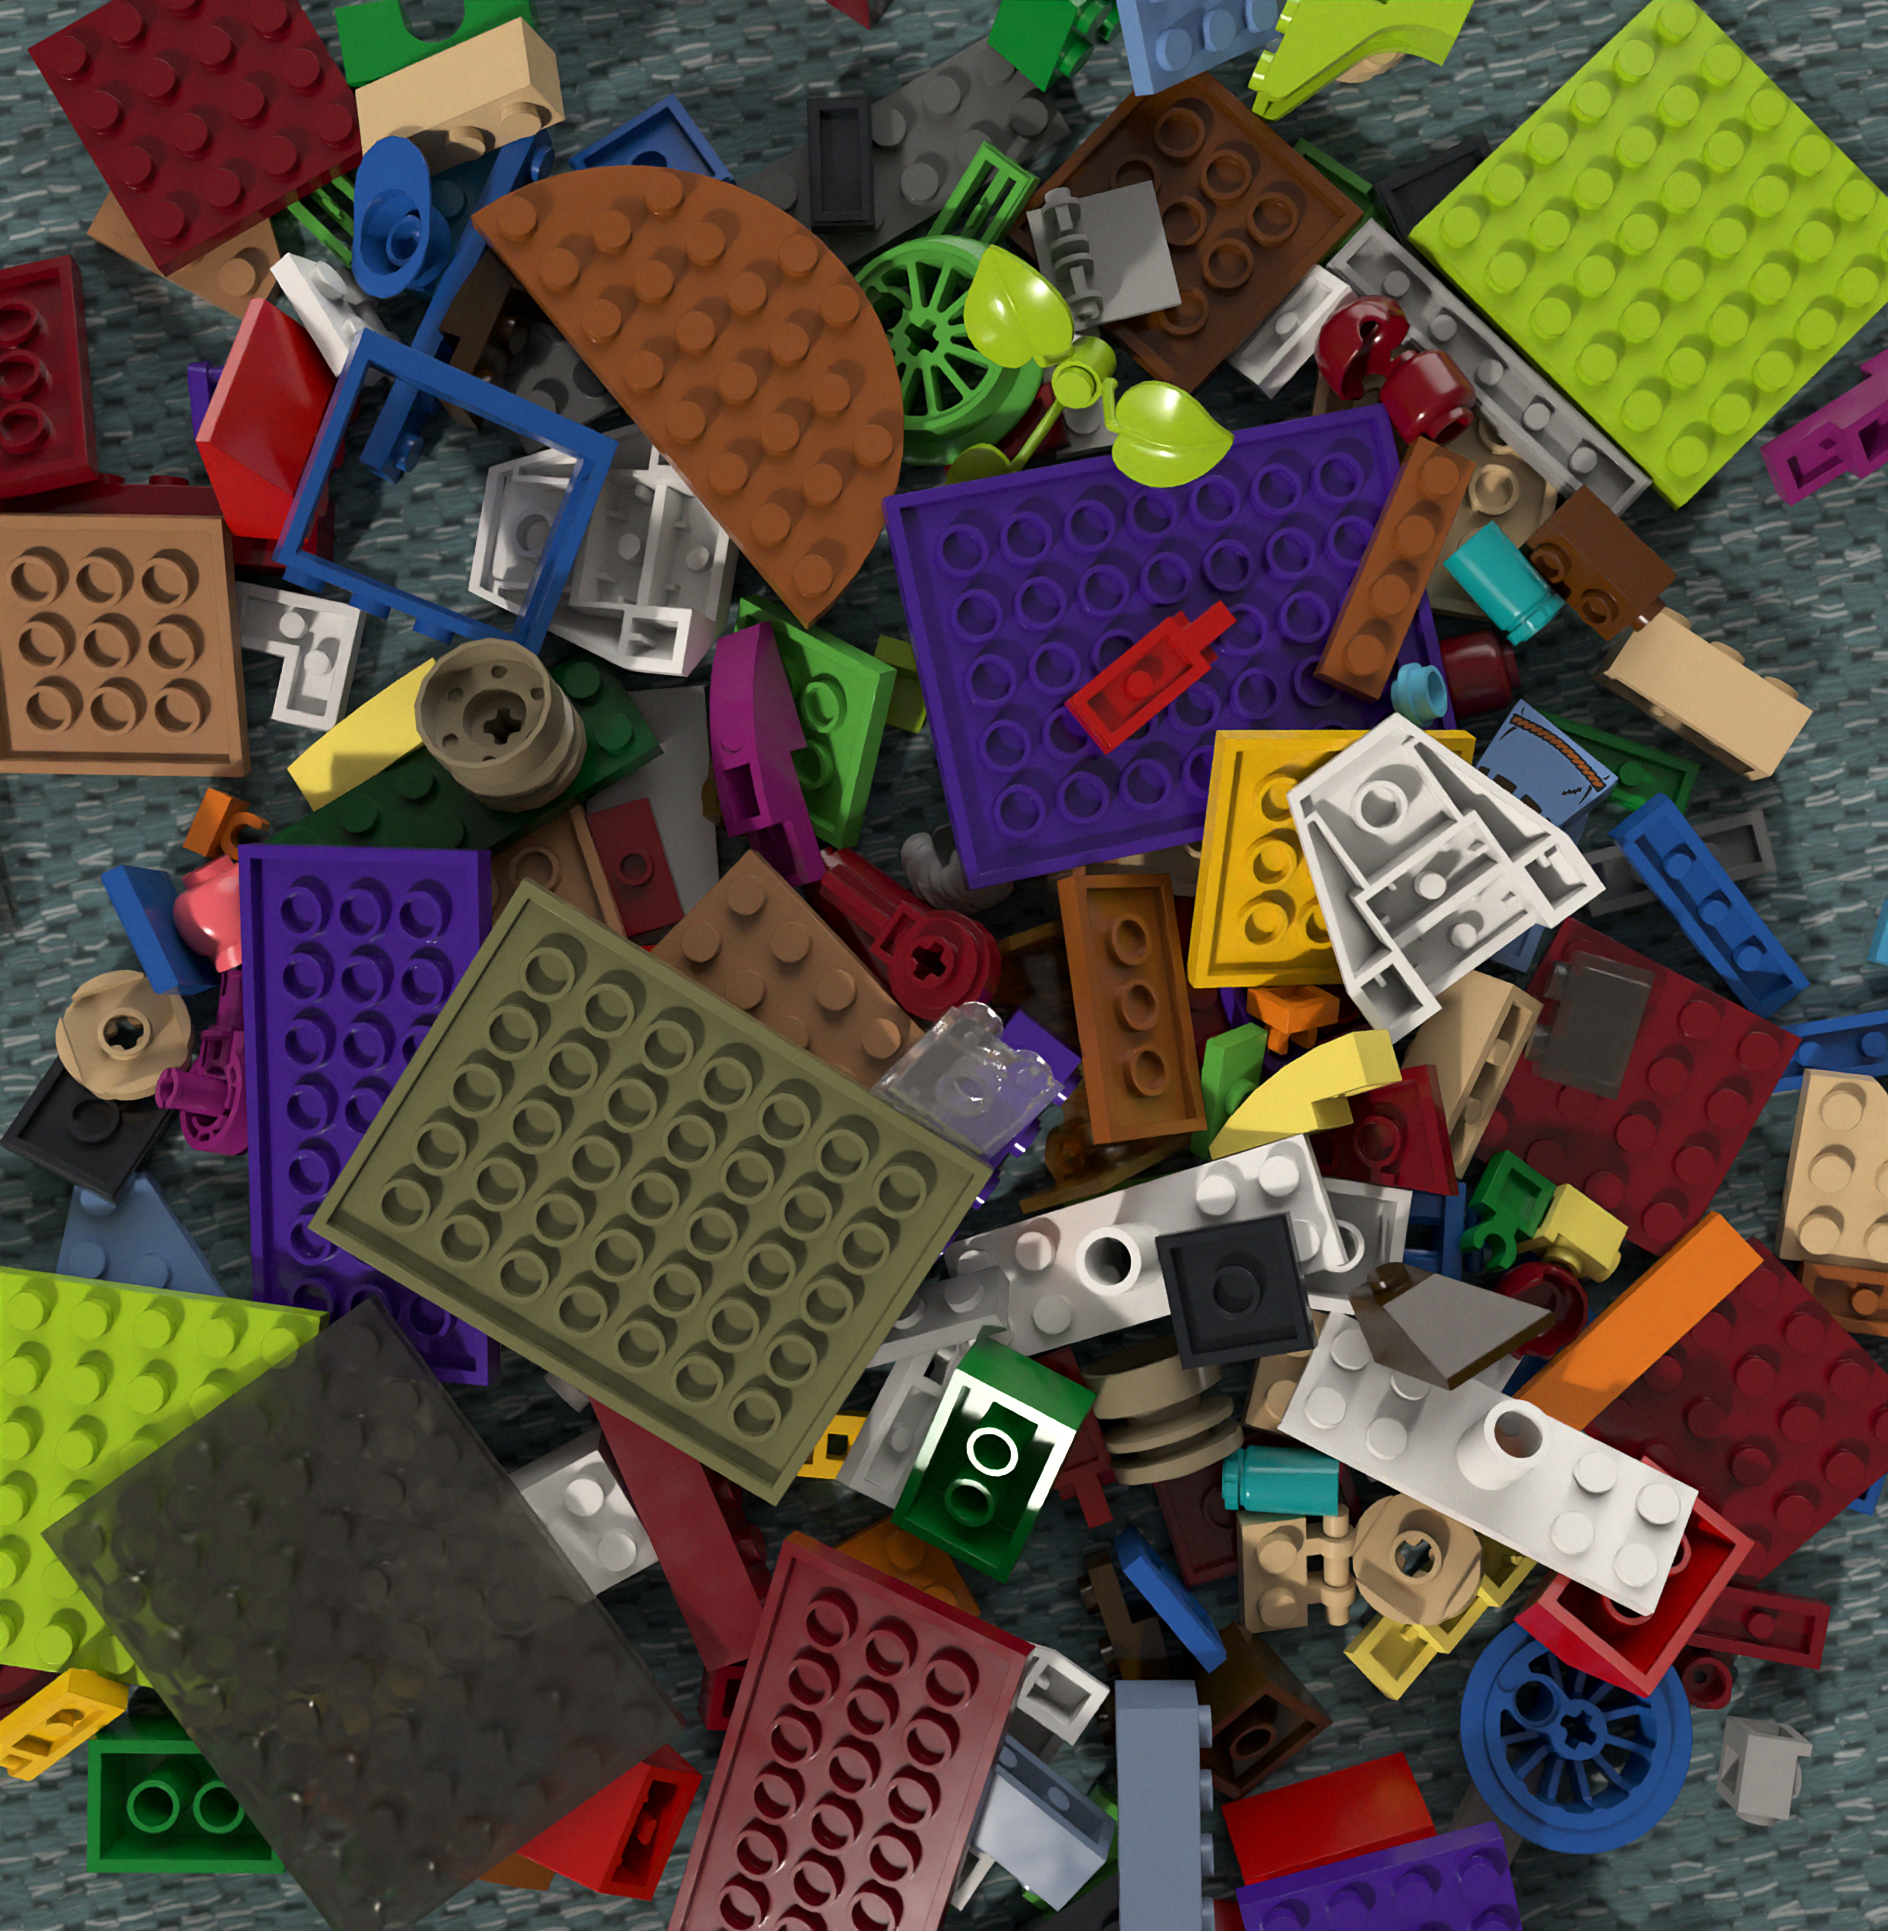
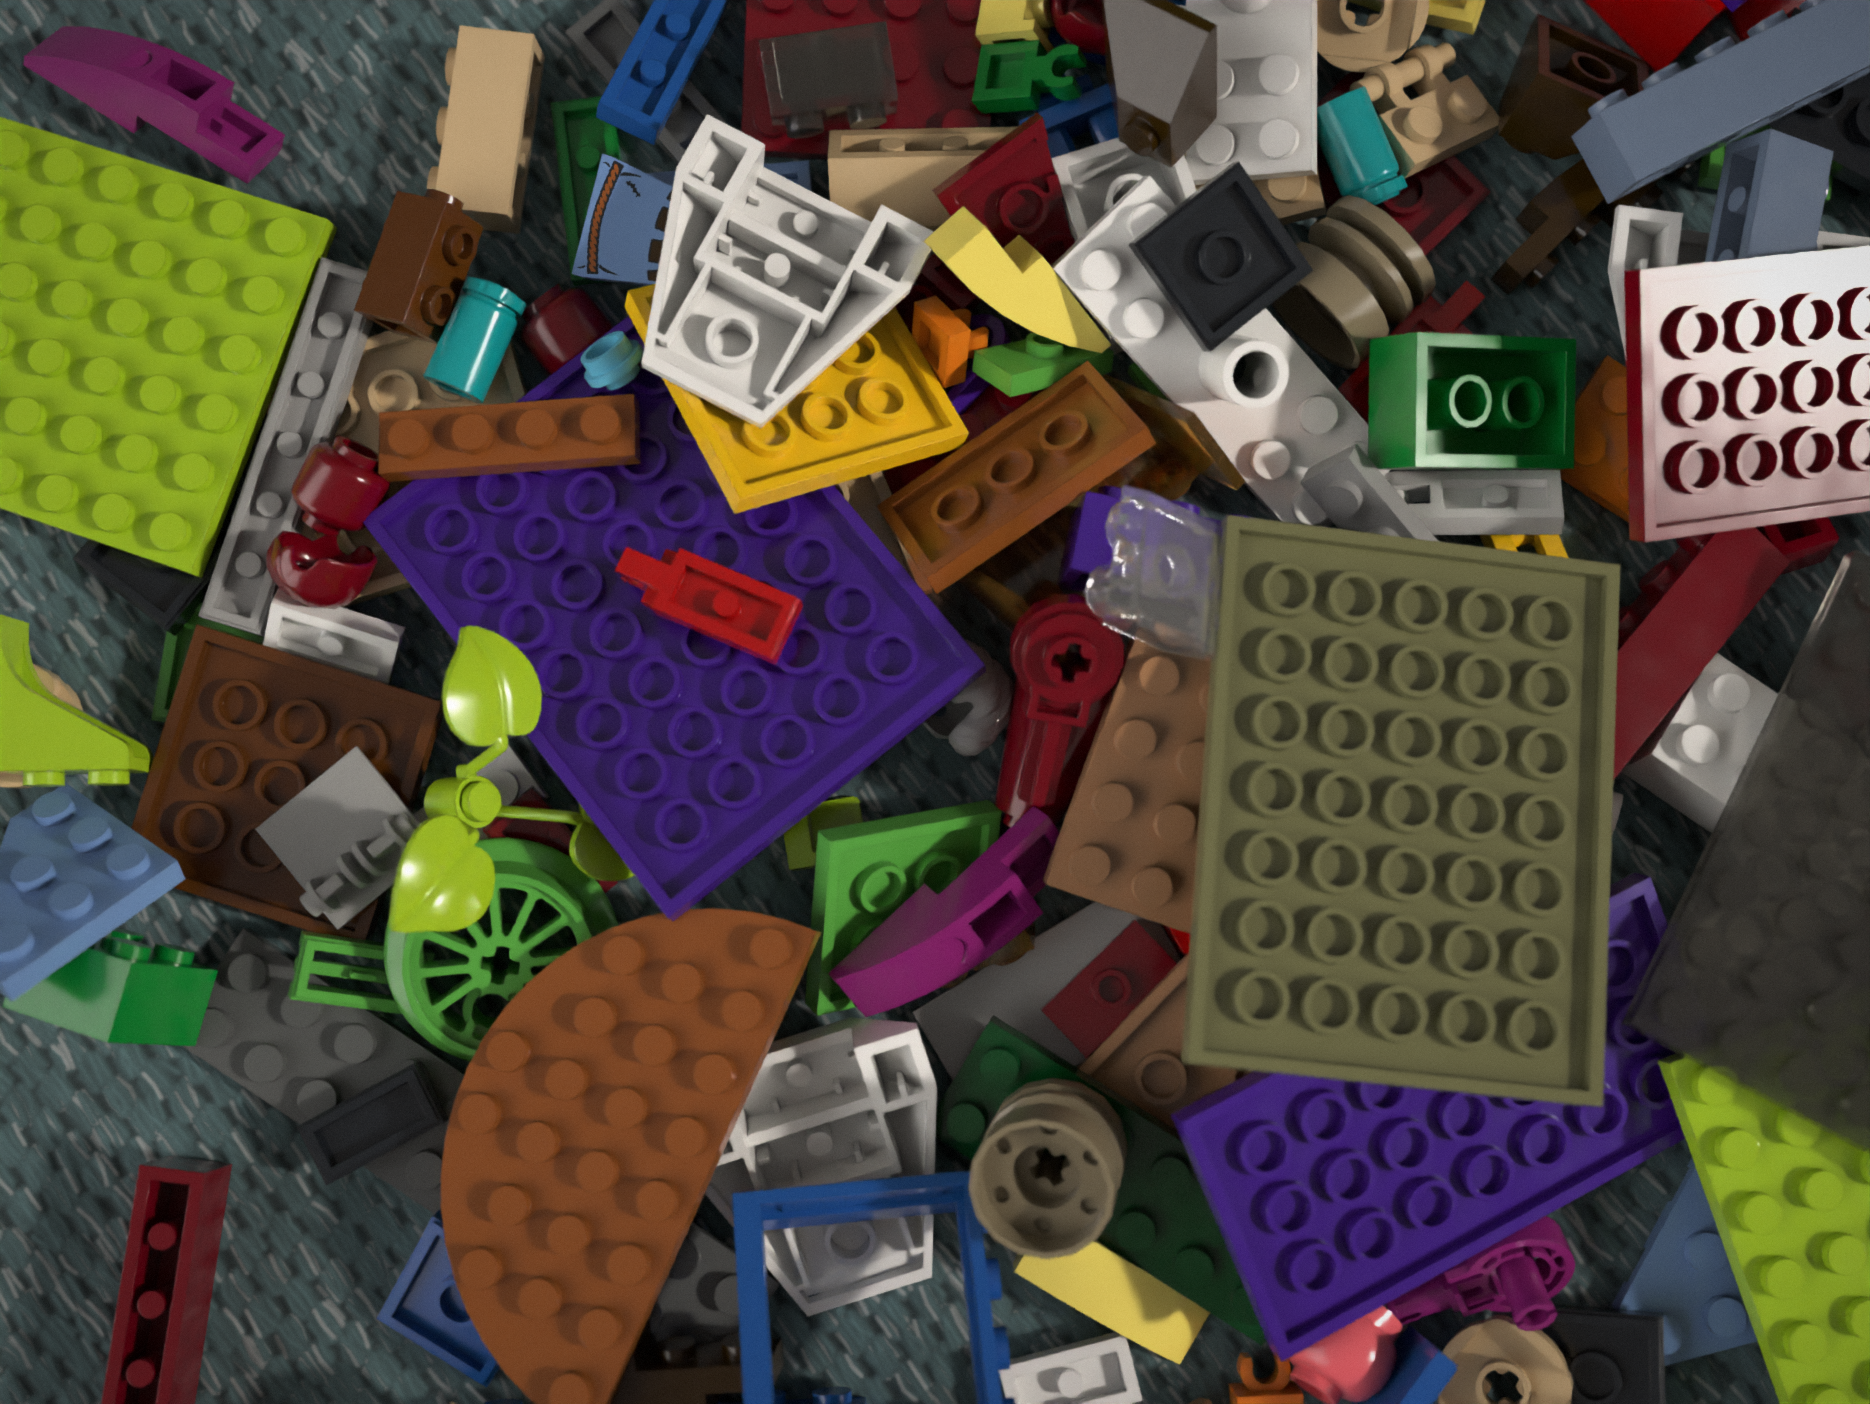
camera: 110 degrees left, 5 degrees down
(1170, 1598) = (1509, 196): blue tile -> none

